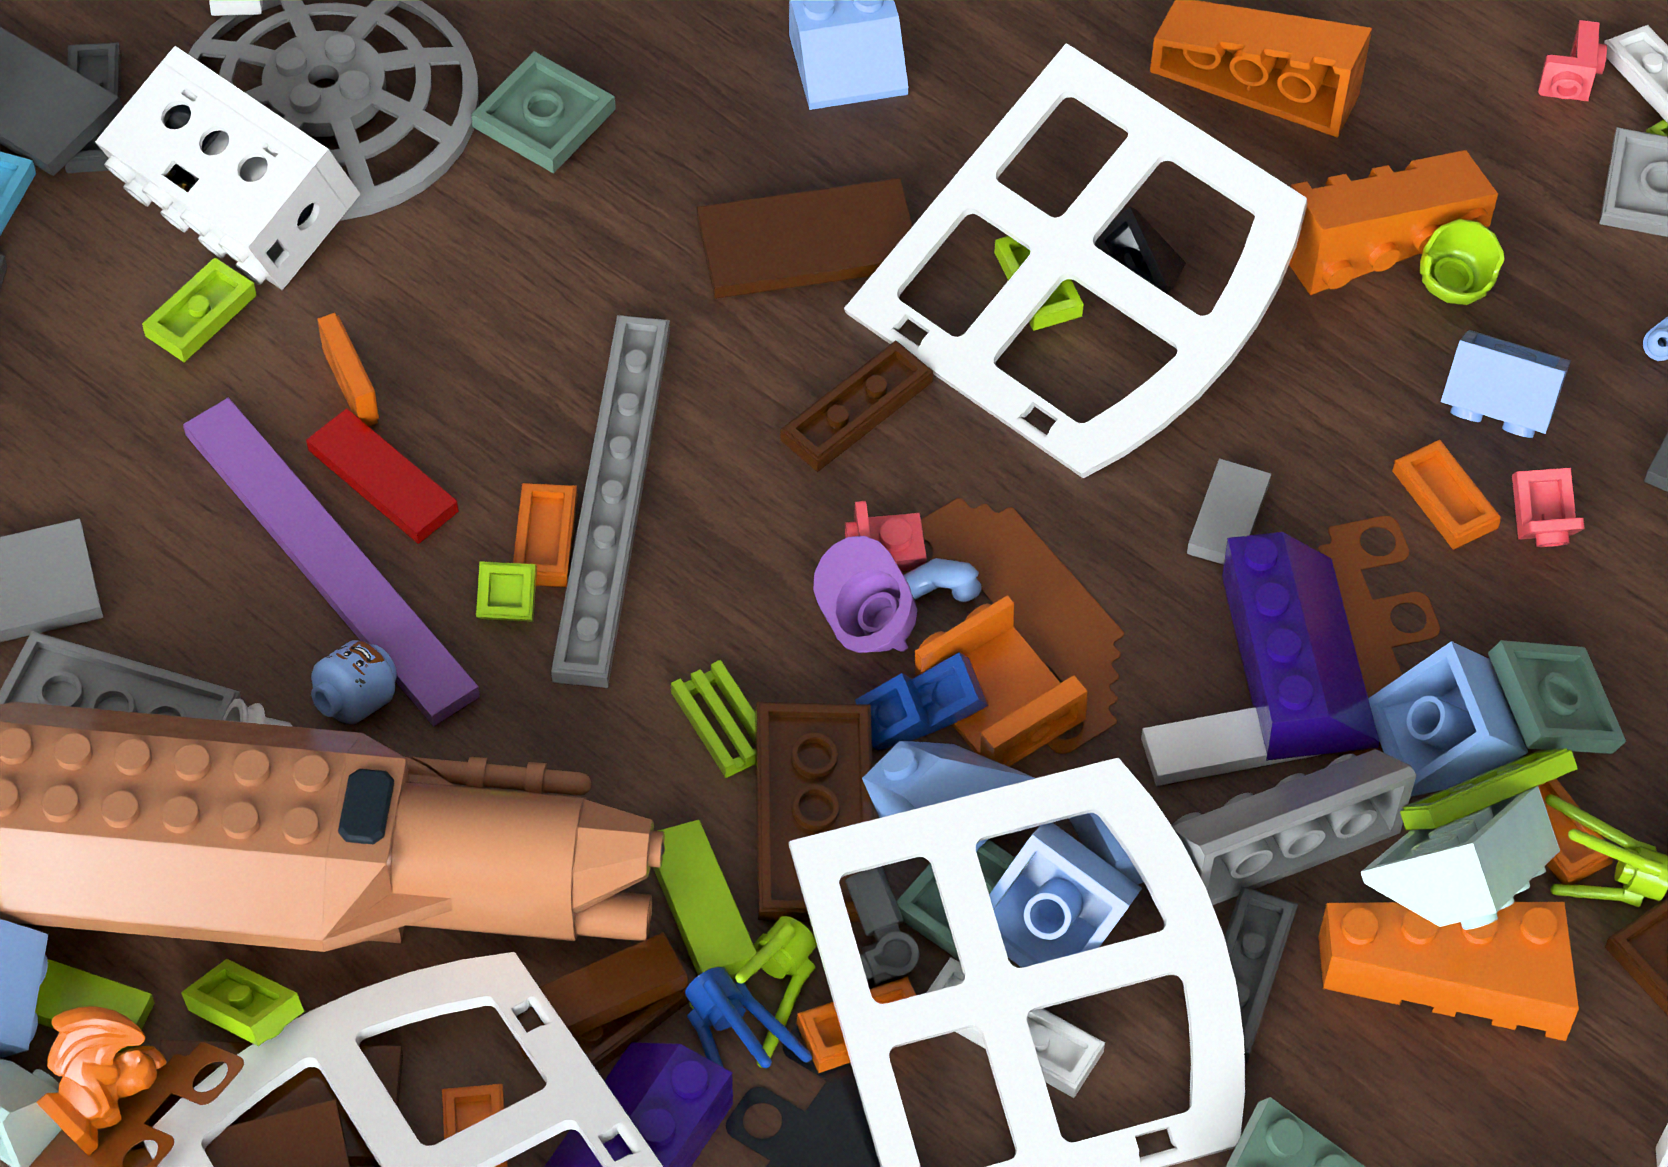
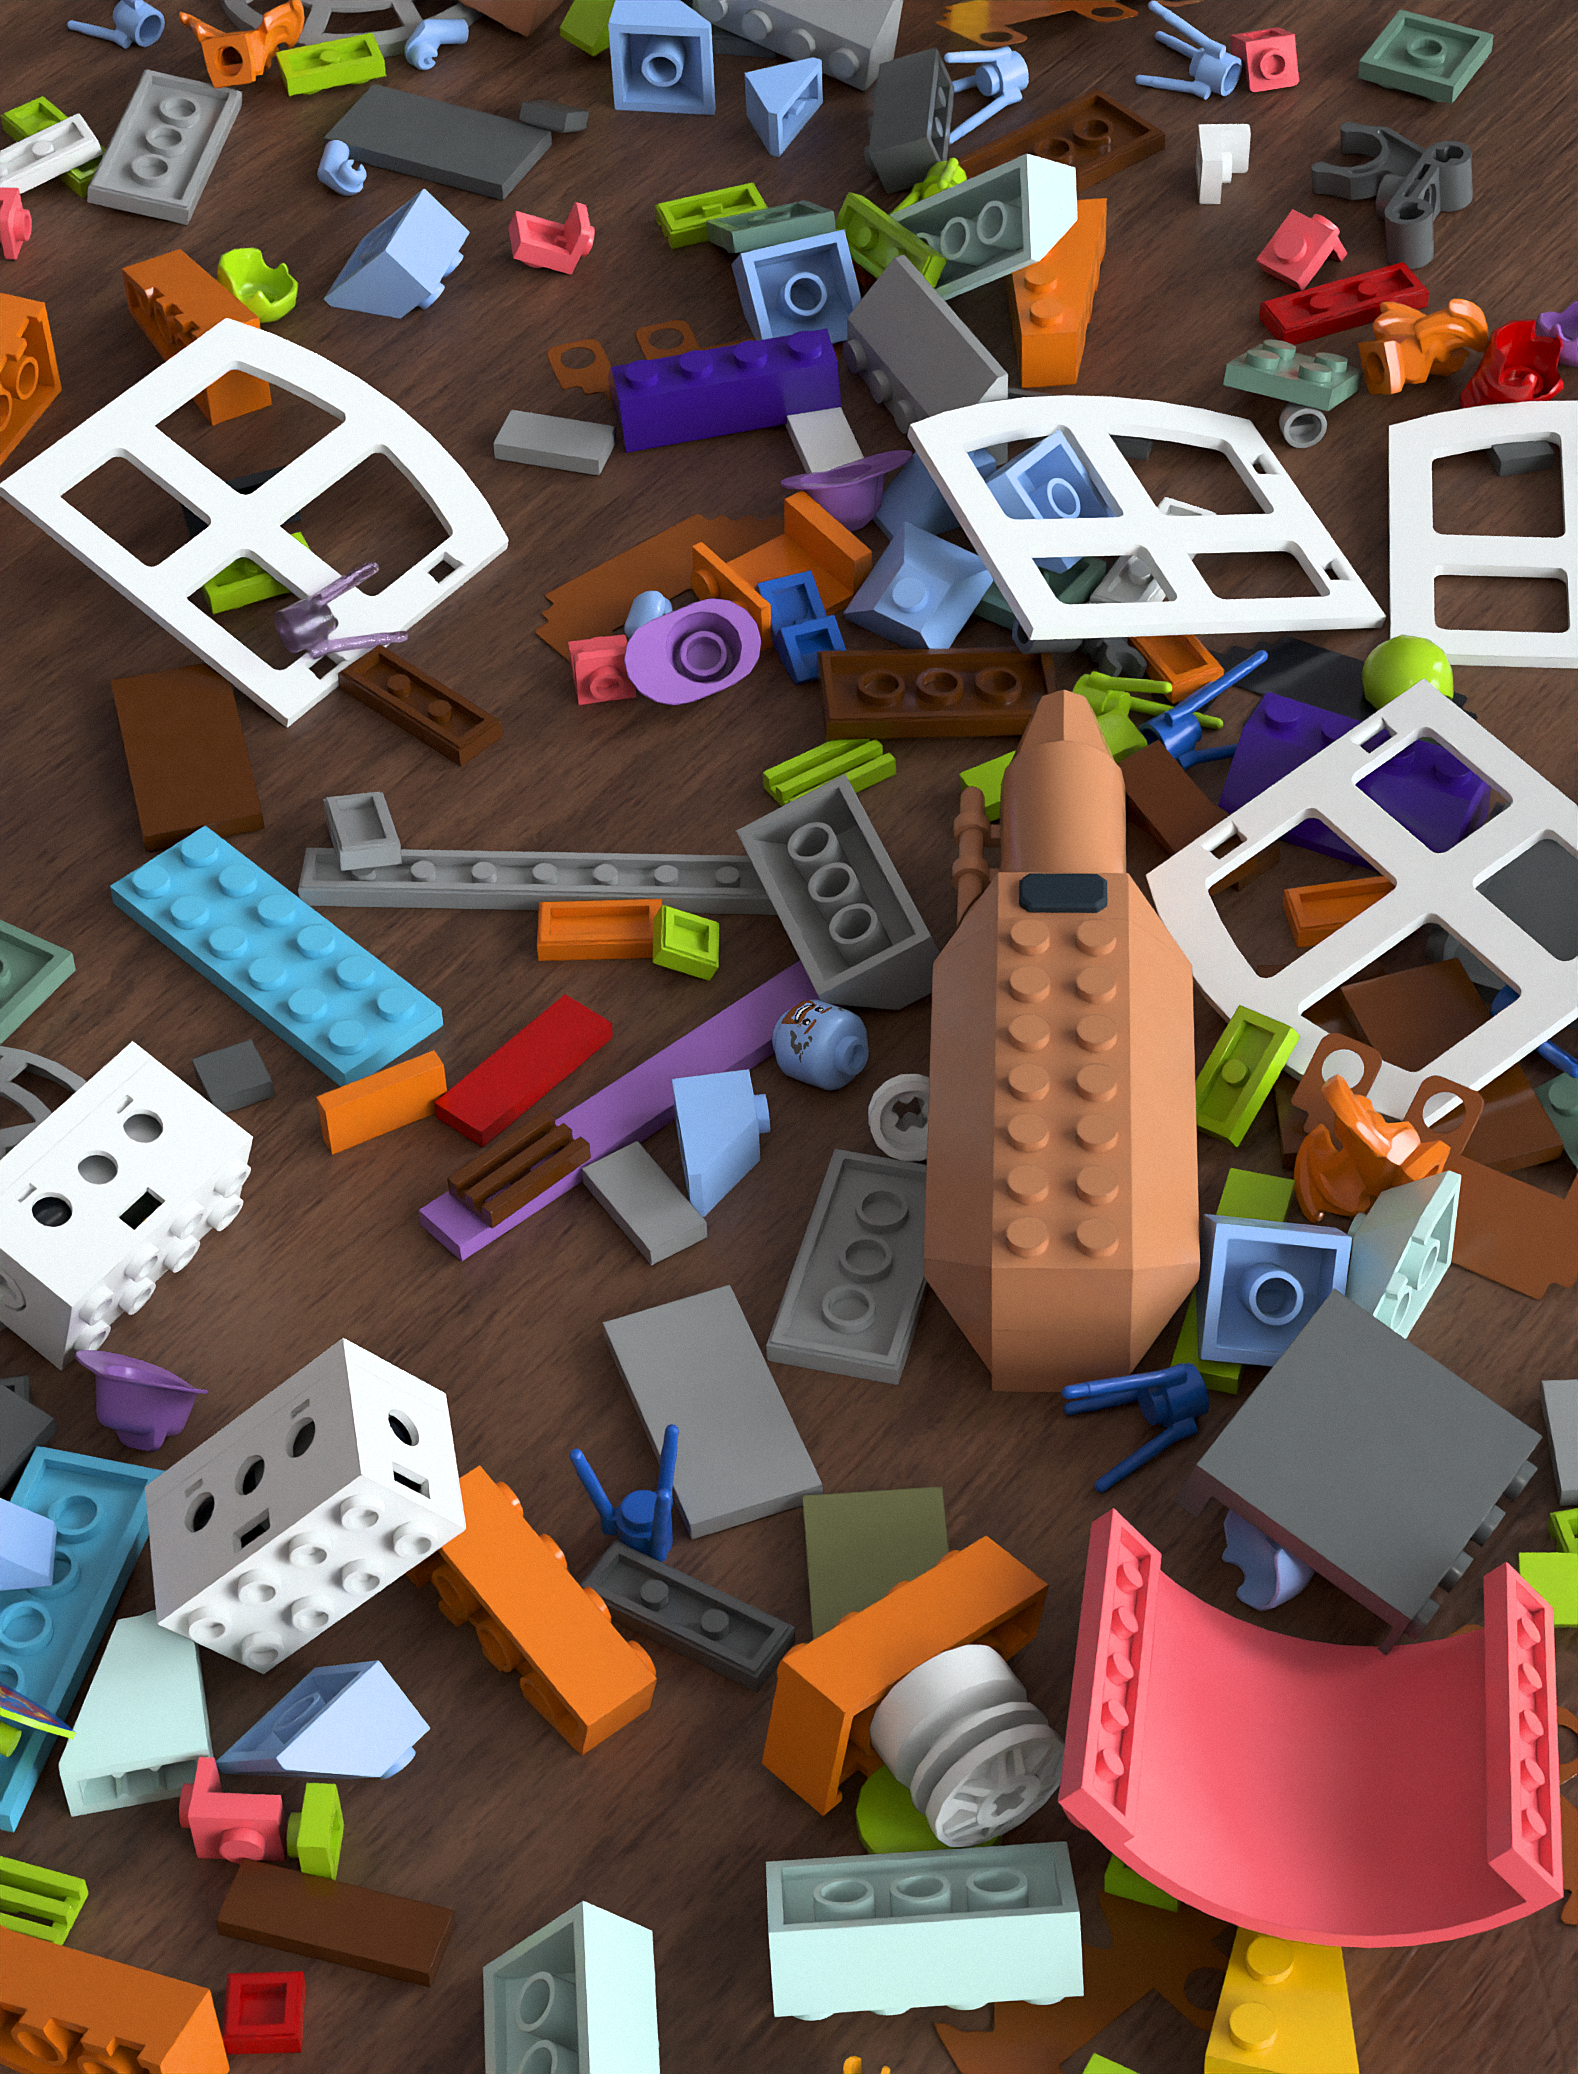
camera: 90 degrees left, 10 degrees down
(76, 215) = (139, 1398): none -> medium lavender piece
(199, 309) = (283, 1255): lime plate -> none
(213, 556) = (644, 1203): none -> light grey tile
(257, 439) = (512, 1162): none -> reddish brown tile
(261, 599) = (717, 1133): none -> light blue slope
(409, 278) = (233, 1077): none -> dark grey tile
(522, 699) = (842, 900): none -> light grey slope
(547, 305) = (277, 957): none -> medium azure plate
(676, 355) = (362, 831): none -> light grey tile
(937, 304) = (310, 620): none -> clear purple plant
(1117, 725) = (851, 490): none -> medium lavender piece
(1446, 494) = (525, 310): orange tile -> none
(1626, 699) = (686, 217): none -> lime tile

